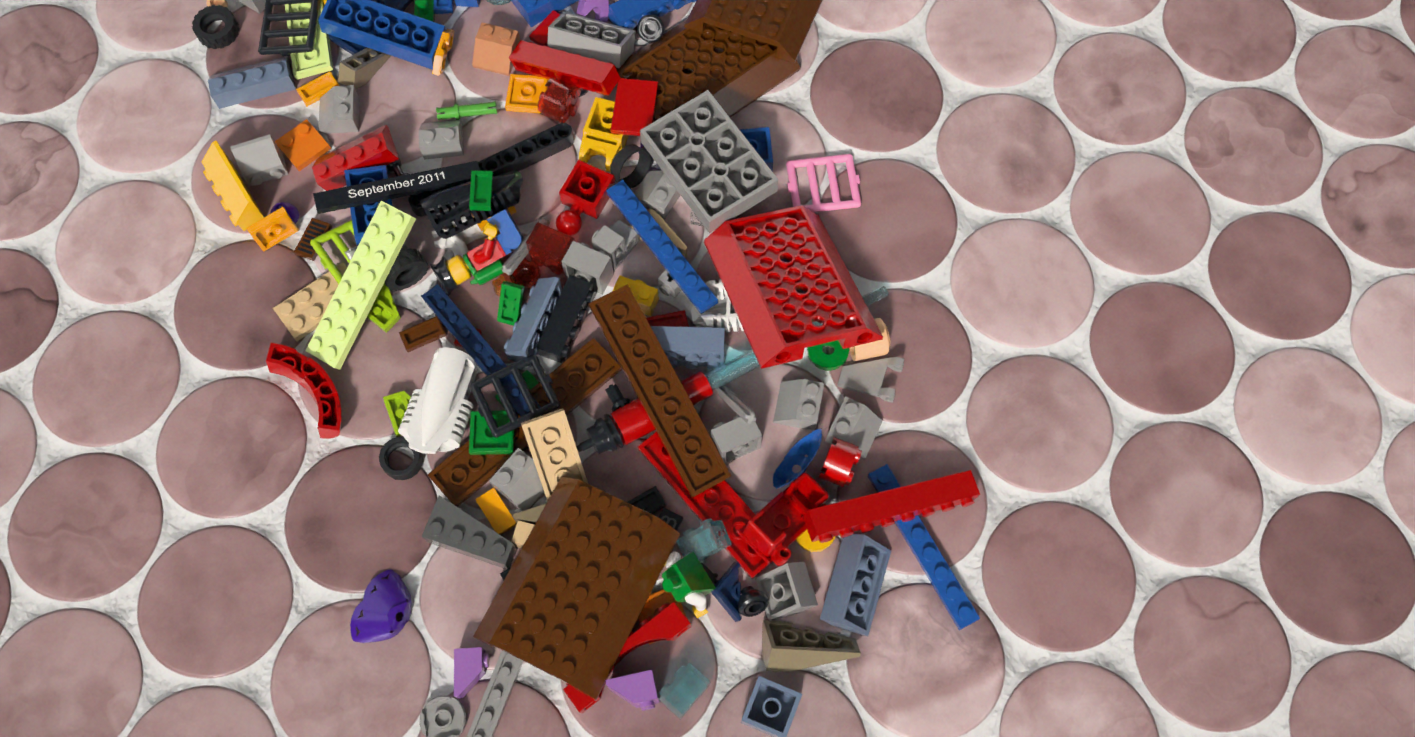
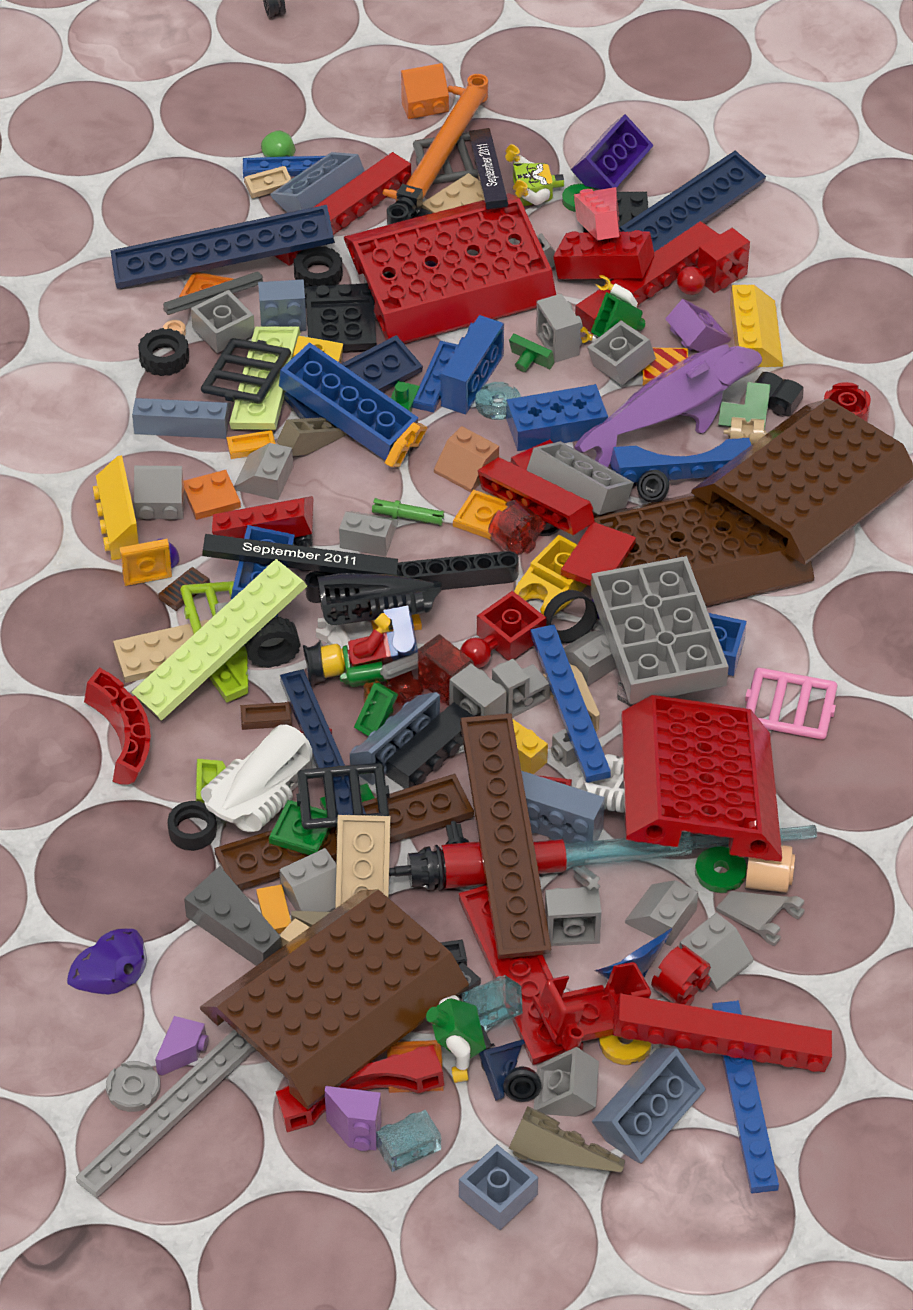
camera: 20 degrees right, 20 degrees down
(481, 190) = (389, 583): green tile -> none

